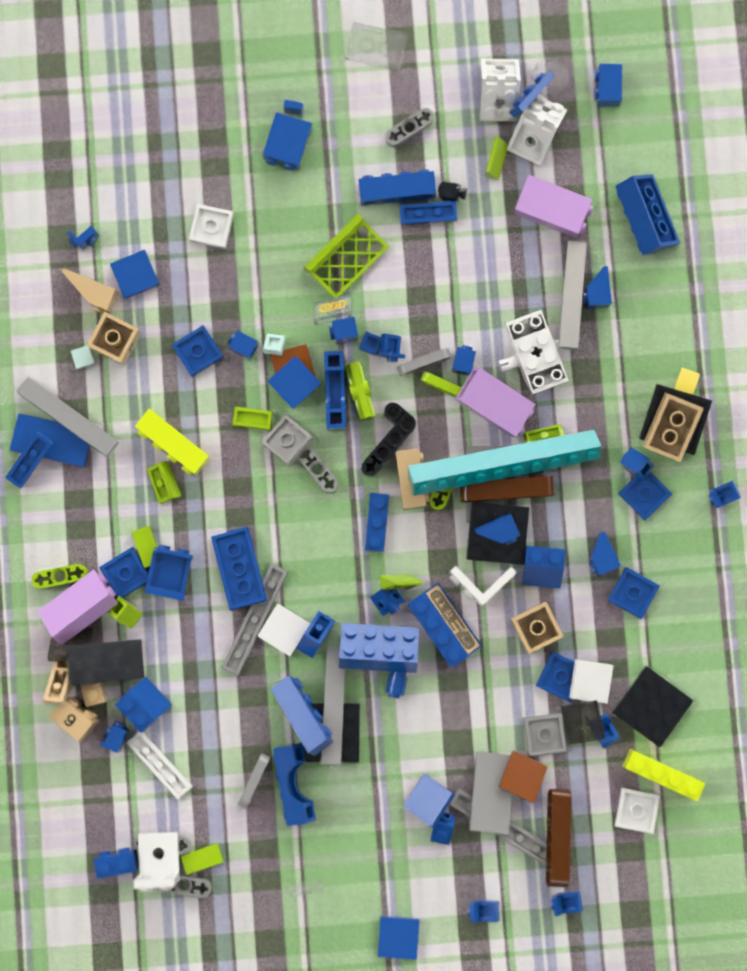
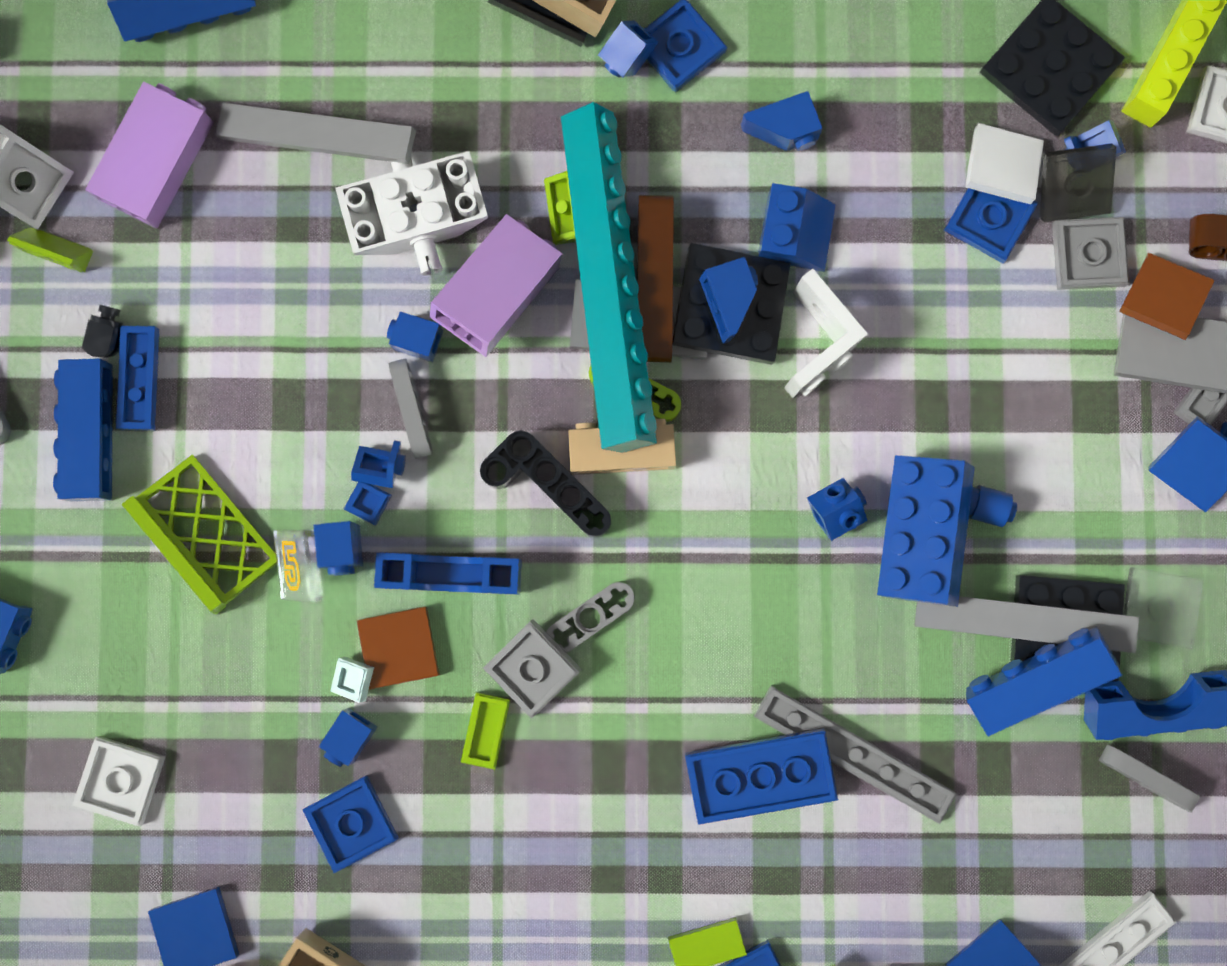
camera: 85 degrees left, 0 degrees up
(163, 482) = (589, 905): lime slope -> none
(168, 572) = (761, 910): blue panel -> none
(172, 441) = (517, 885): neon yellow brick -> none
(283, 629) = (877, 702): white tile -> none
(294, 382) = (426, 648): blue tile -> none
(315, 634) = (891, 645): blue slope -> none
(360, 391) = (452, 528): lime piece -> none
(377, 522) = (694, 517): blue plate -> none
(400, 581) = (807, 484): lime slope -> none
(440, 384) = (454, 381): lime beam -> none
(444, 625) = (889, 411): blue slope -> none
(536, 627) = (906, 247): tan brick -> none
(598, 291) = (312, 87): blue slope -> none
(633, 593) = (852, 79): blue tile -> none

